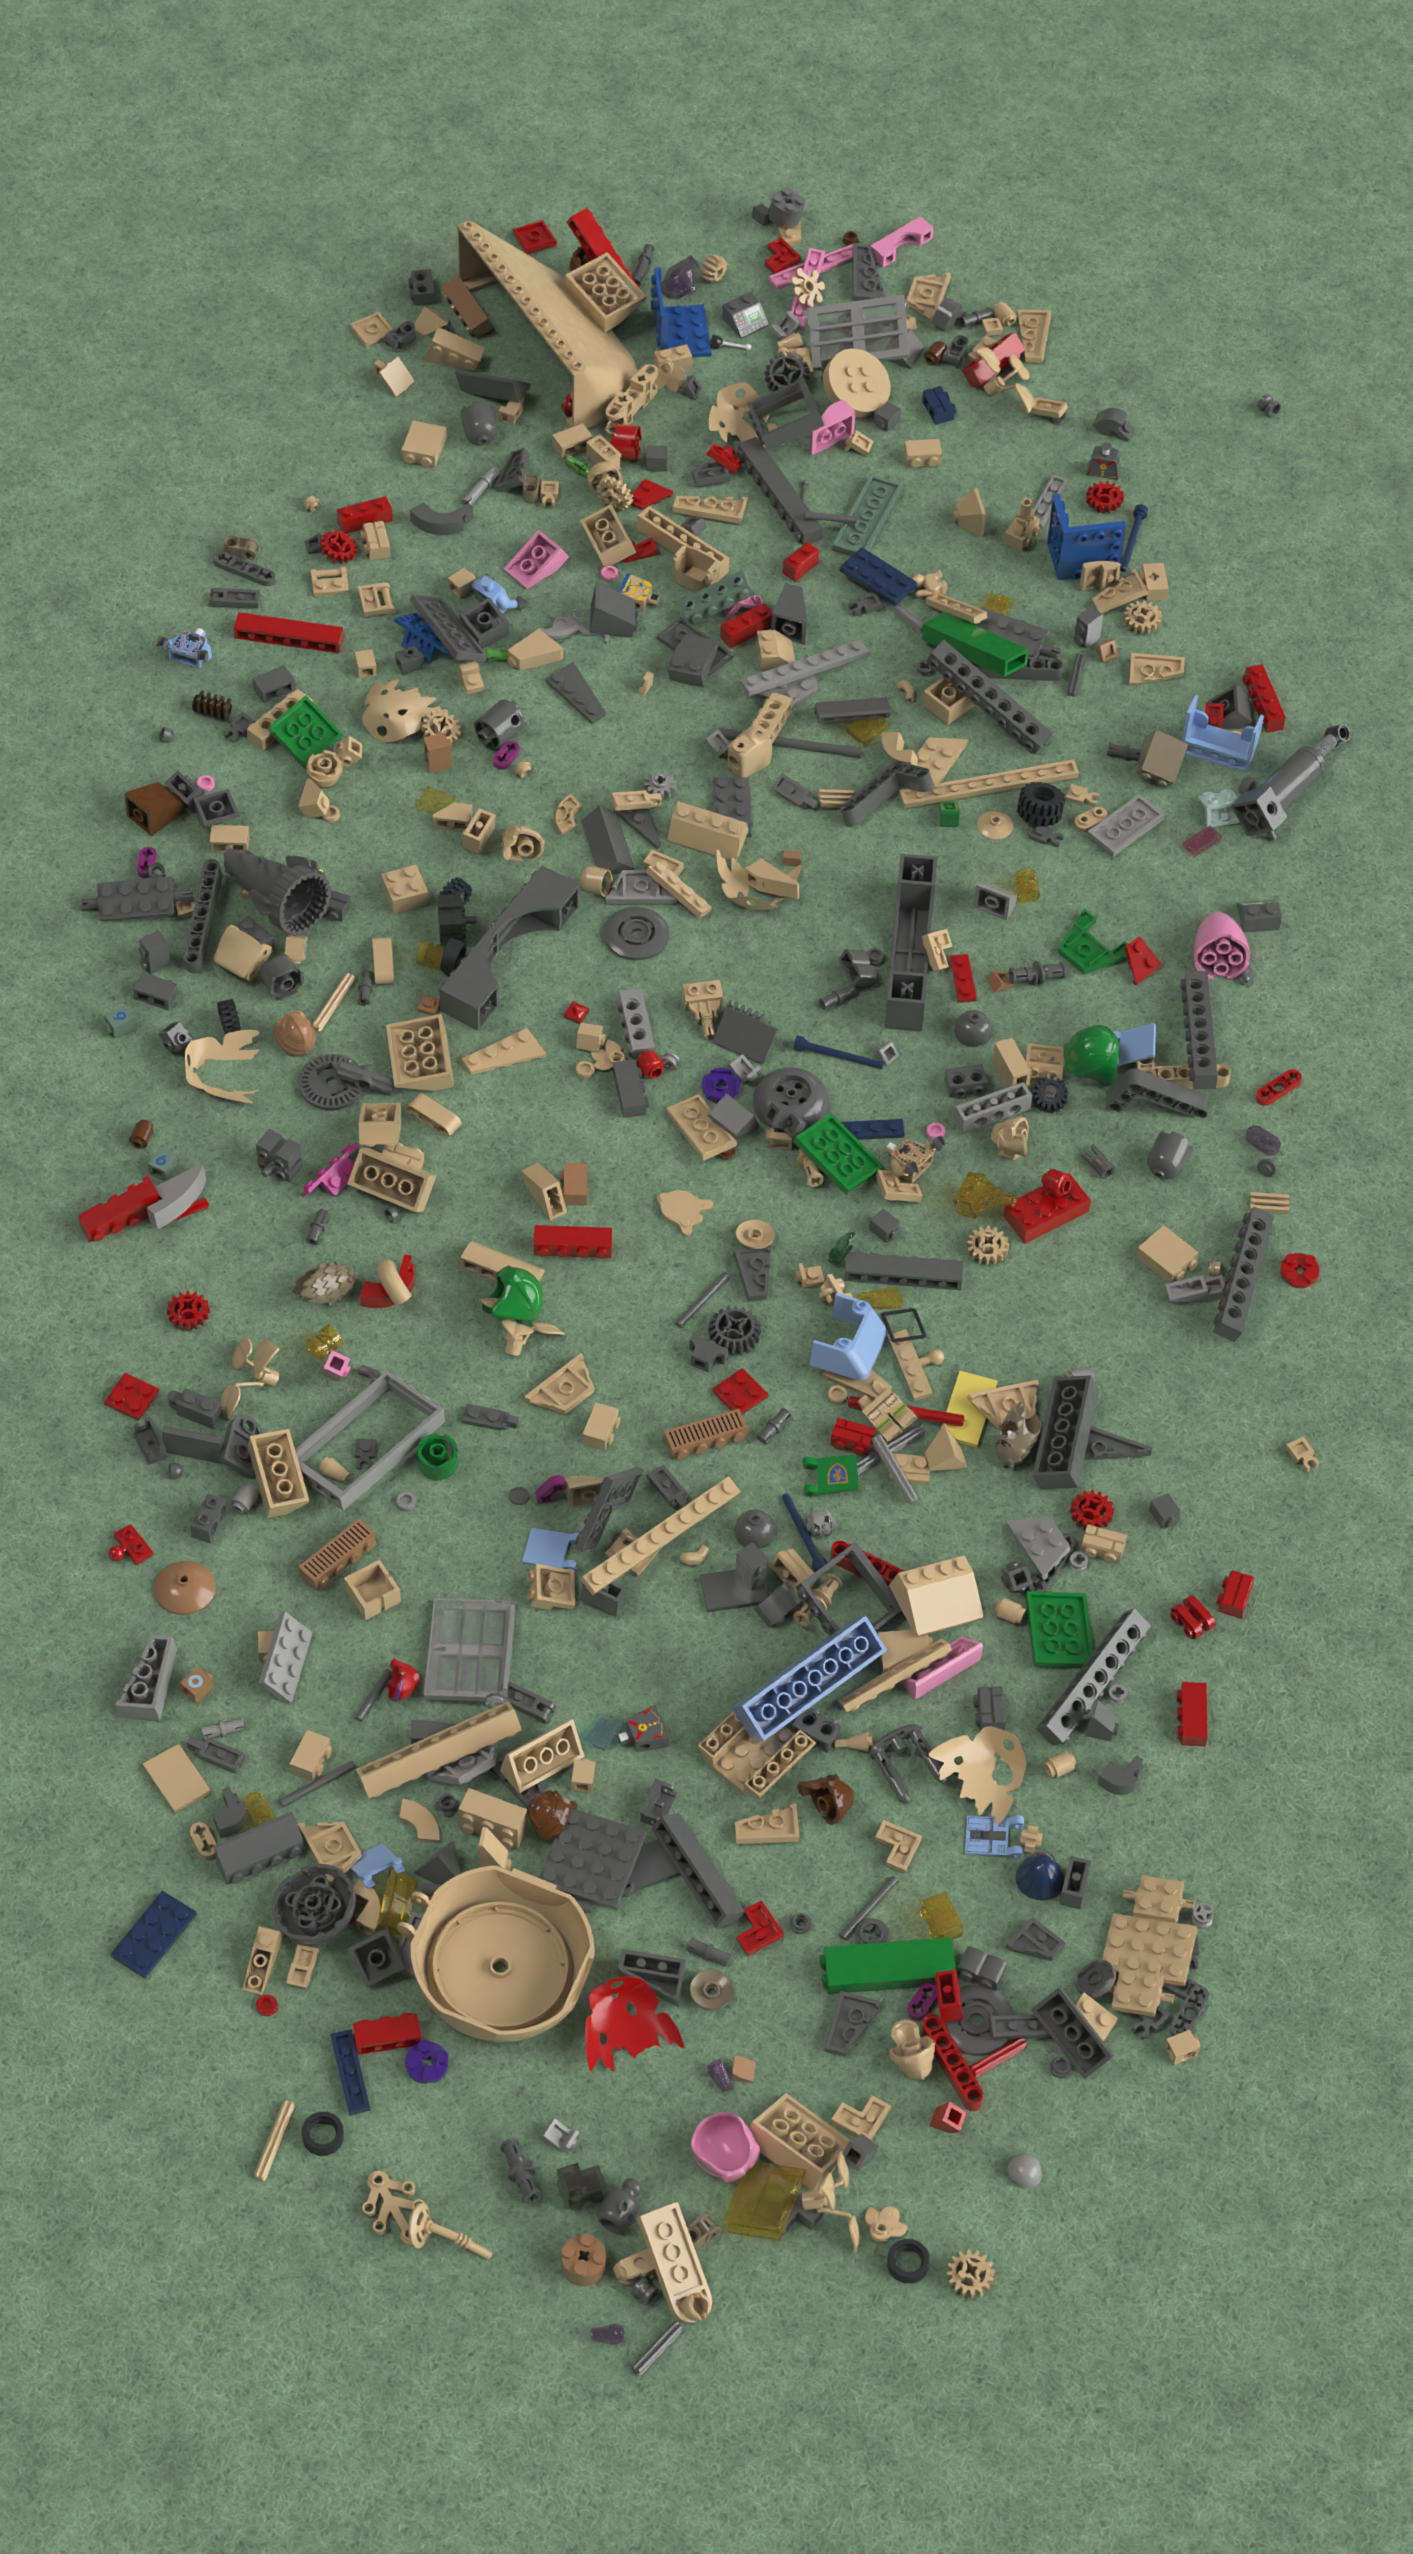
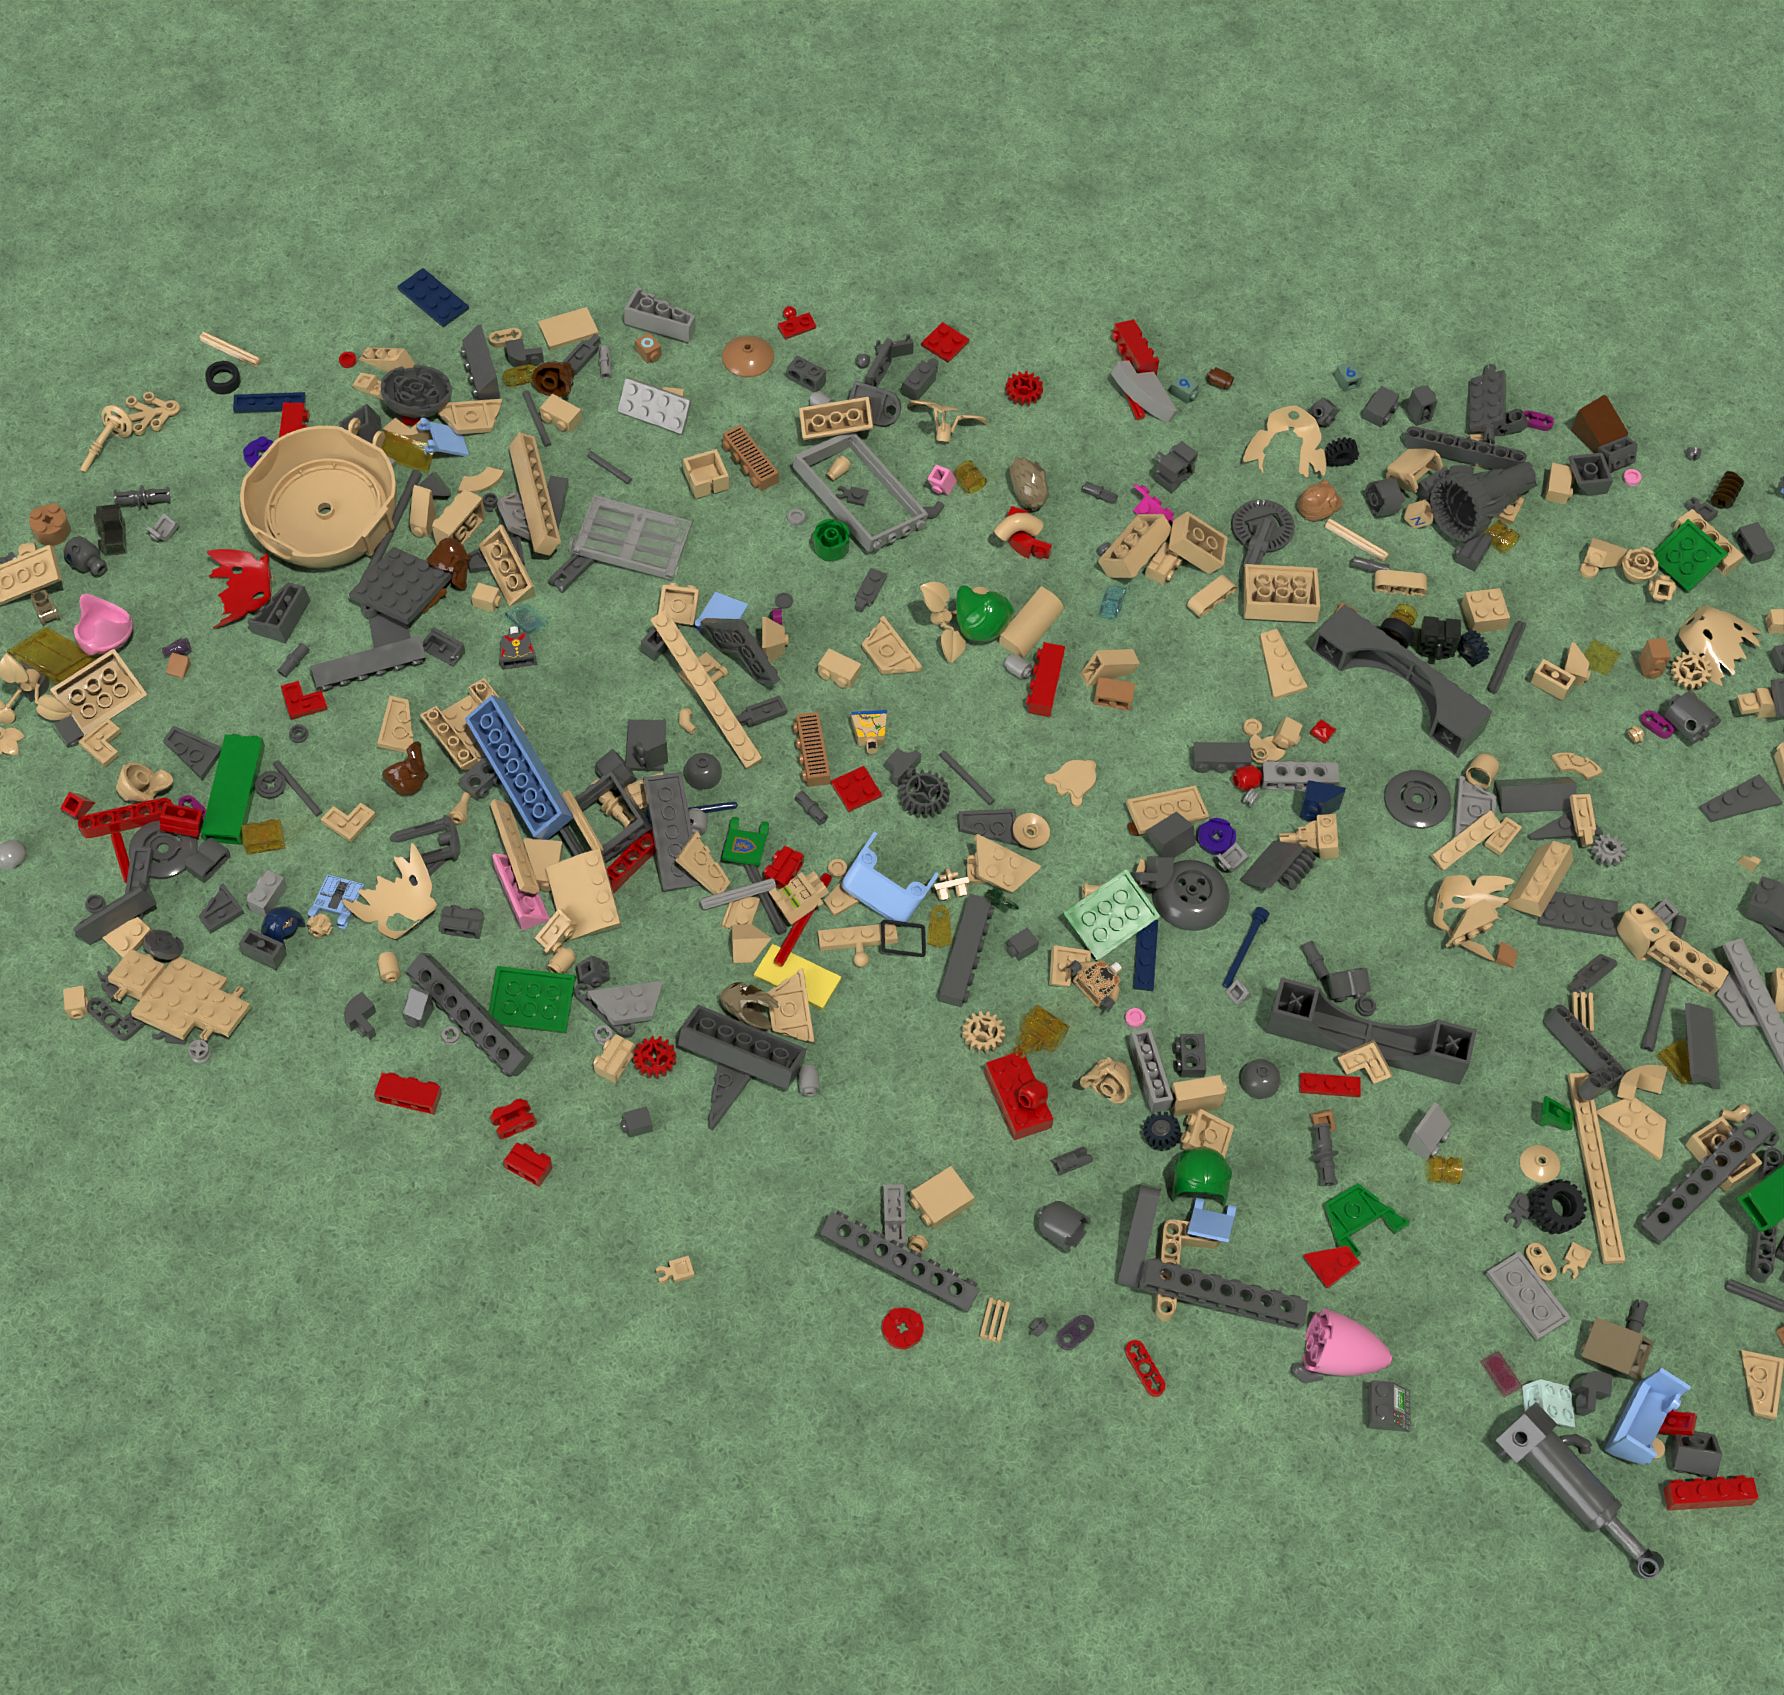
camera: 100 degrees right, 5 degrees up
(261, 1766) = (554, 378): none -> reddish brown head
(403, 1680) = (612, 484): red hair -> none
(451, 872) = (1507, 657): none -> dark grey axle
(462, 1198) = (1112, 601): none -> clear light blue slope
(520, 842) = (1535, 711): tan head -> none
(560, 1270) = (1018, 666): none -> light grey brick
(668, 1387) = (869, 728): none -> torso
(669, 1002) = (1320, 800): none -> dark blue slope
(715, 1981) = (253, 648): dark tan dish -> none
(804, 1250) = (1001, 866): none -> tan wing
(844, 1529) = (670, 827): none -> dark grey plate
(859, 1608) = (581, 820): none -> tan axle
(874, 1502) = (700, 864): none -> tan wing
(983, 1617) = (556, 931): none -> tan bracket
(1008, 1897) = (266, 893): none -> light grey brick
(1199, 779) = (1589, 1388): none -> dark grey brick

